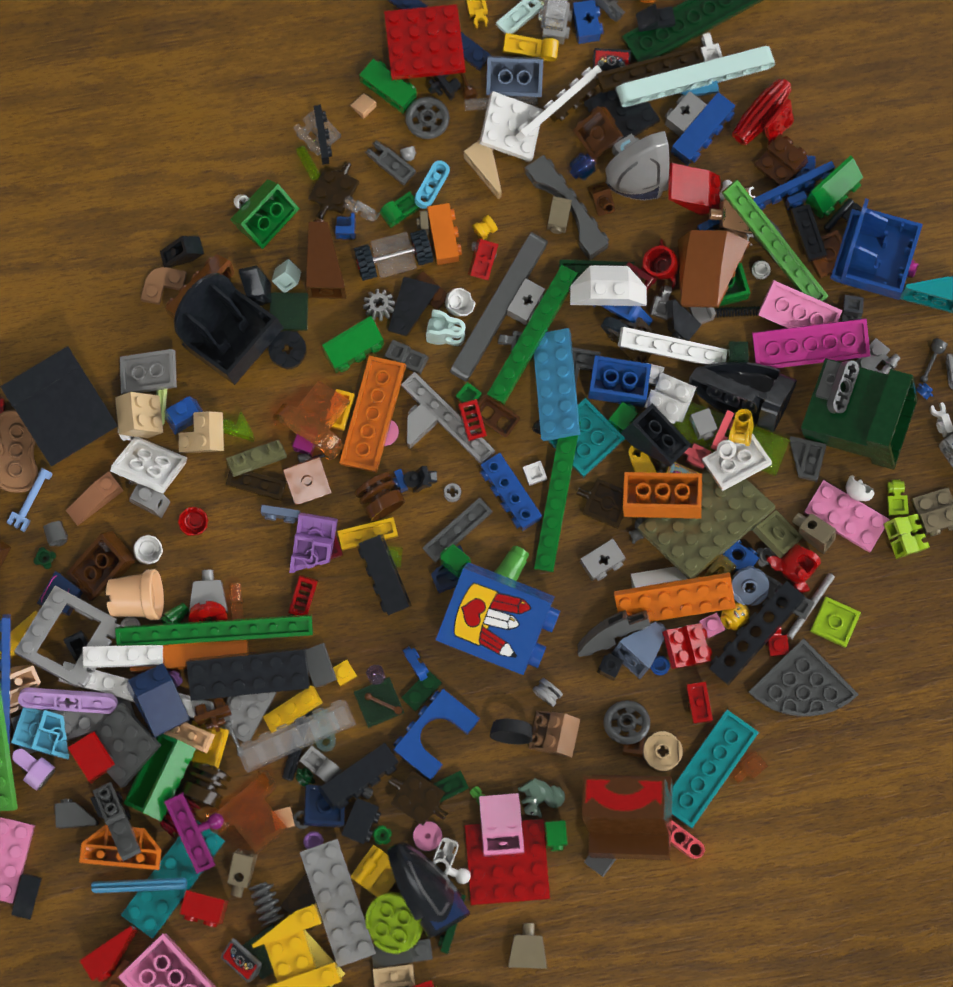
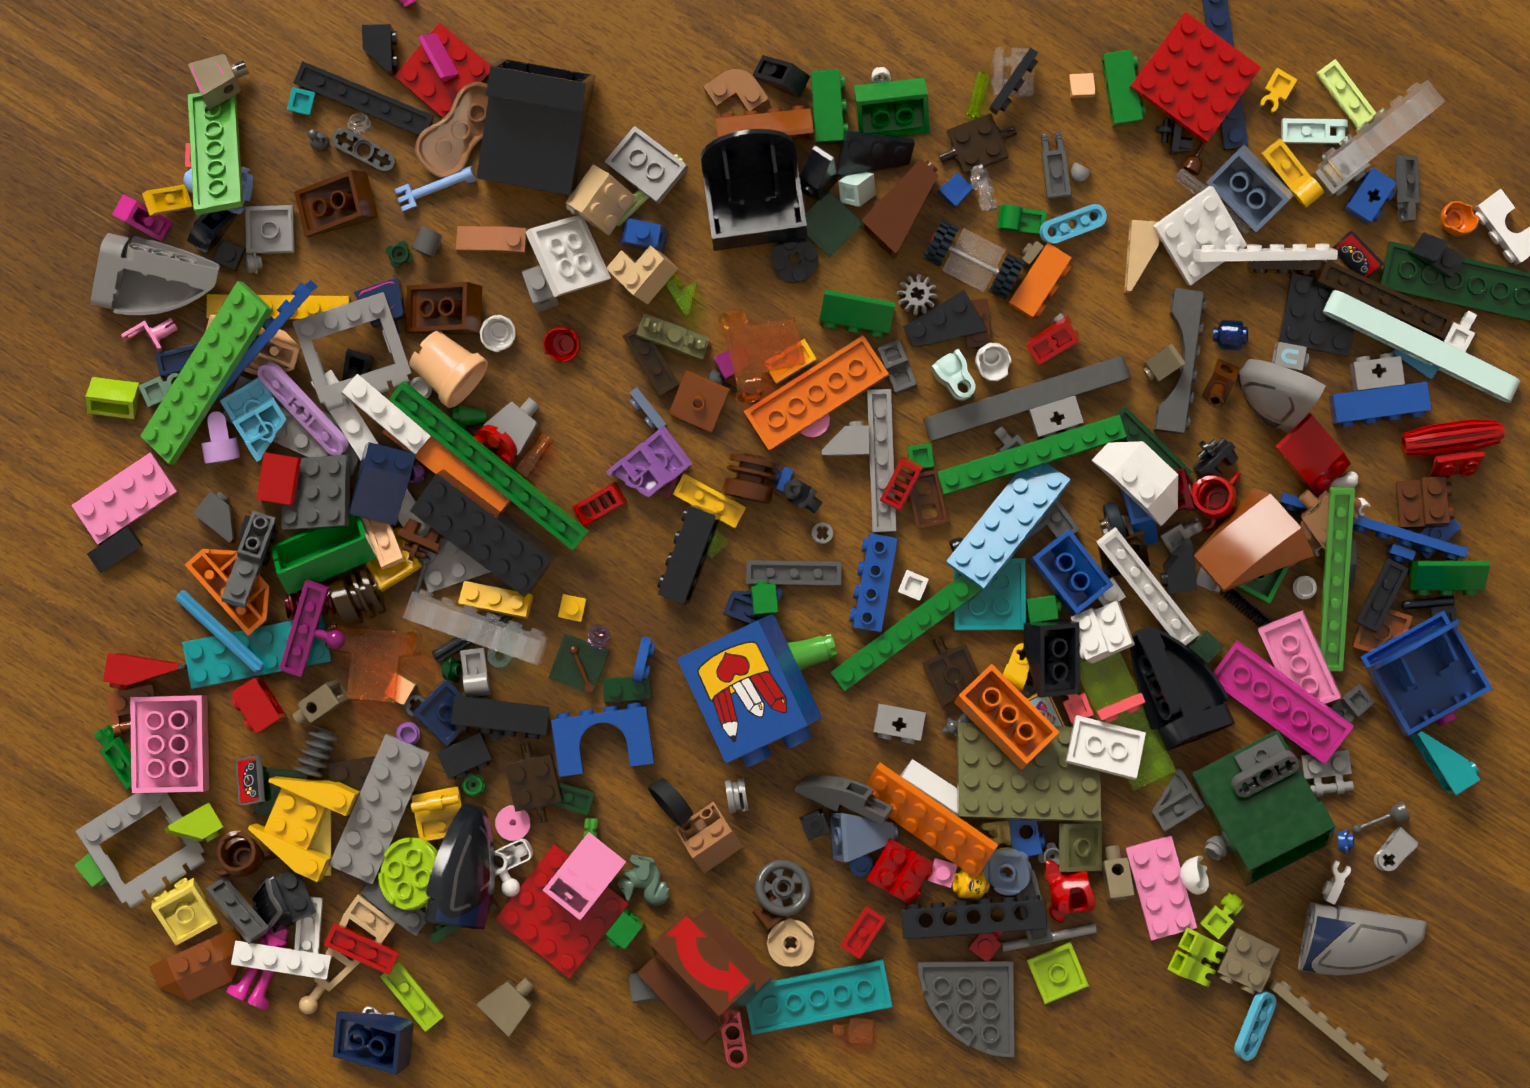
camera: 45 degrees right, 10 degrees up
(226, 244) = (828, 106): none -> green brick
(276, 247) = (872, 152): none -> black wing
(320, 666) = (555, 582): dark grey slope -> none
(428, 103) = (1148, 162): dark grey plate -> none
(485, 227) = (1084, 310): yellow wheel -> none
(598, 132) = (1276, 316): reddish brown plate -> none
(636, 242) = (1212, 455): none -> black hips
(703, 424) = (1108, 685): light grey brick -> none
(726, 449) = (1105, 729): white plate -> none
(742, 427) = (1135, 725): yellow piece -> none
(855, 463) = (1216, 848): none -> light grey plate

